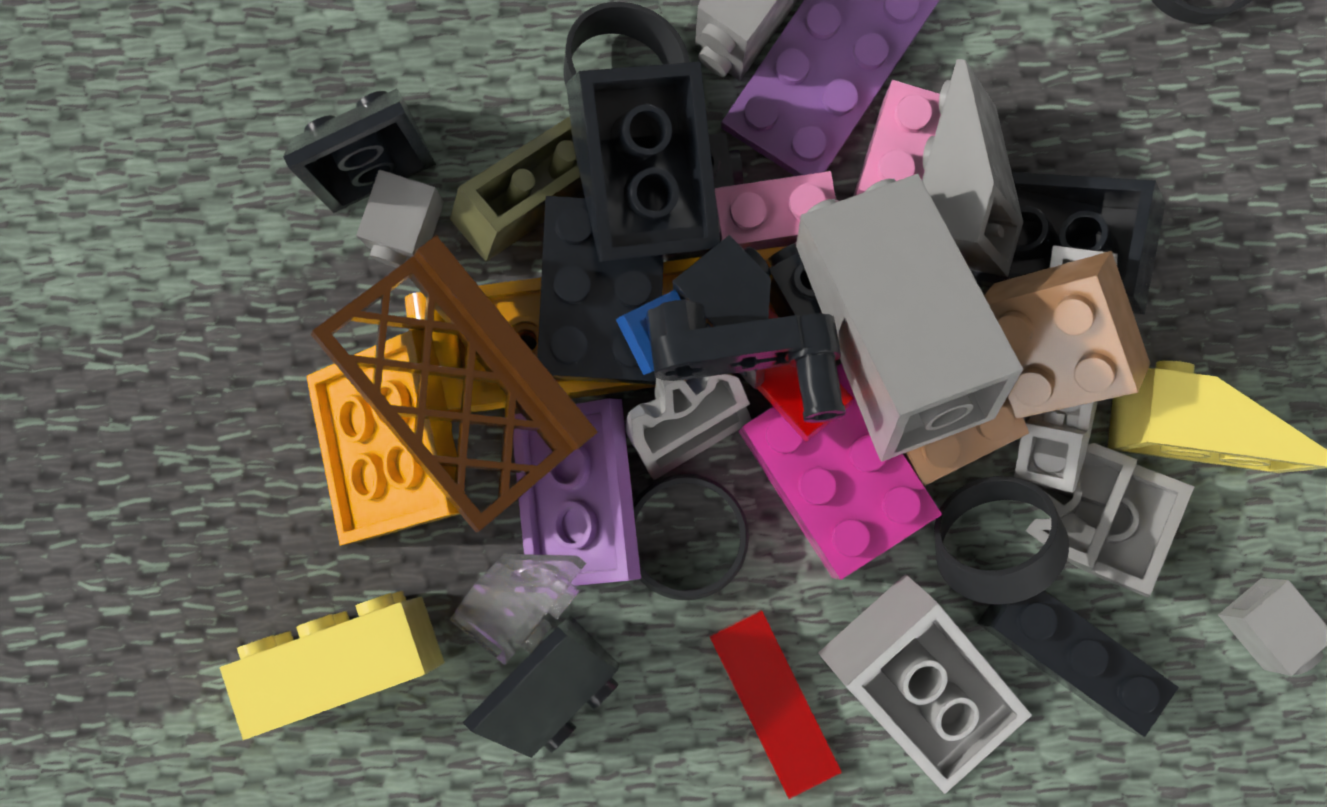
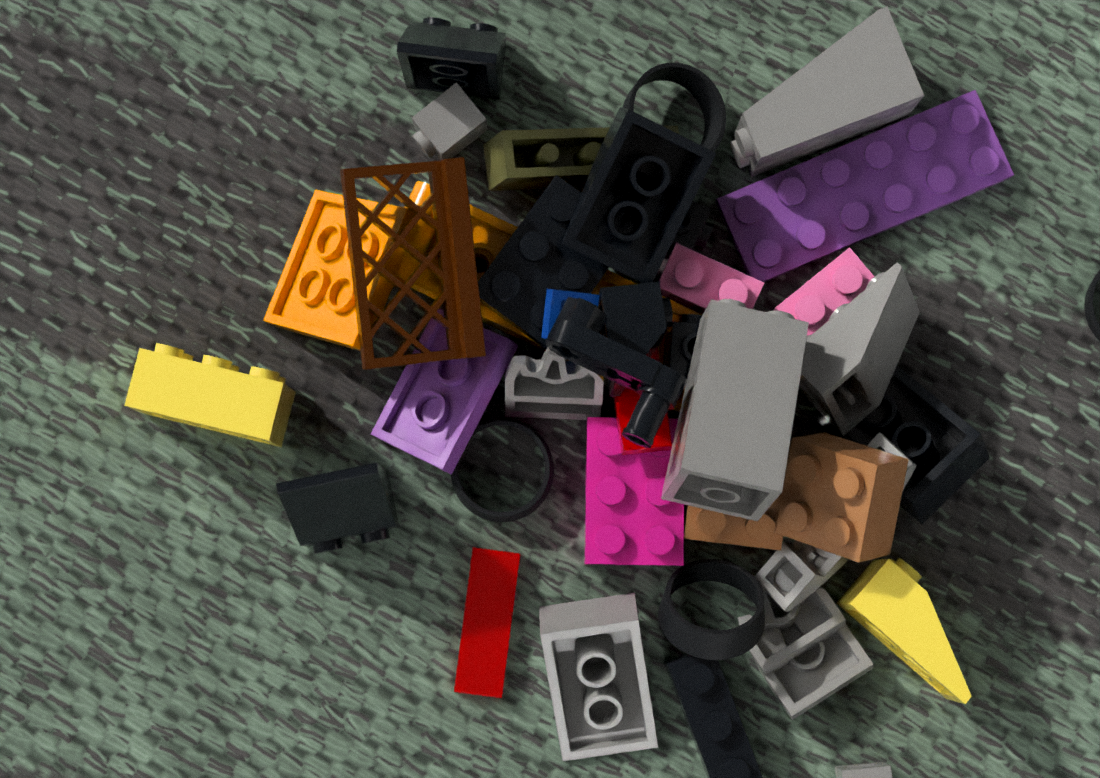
camera: 35 degrees right, 0 degrees up
(513, 599) = (358, 433): clear slope -> none

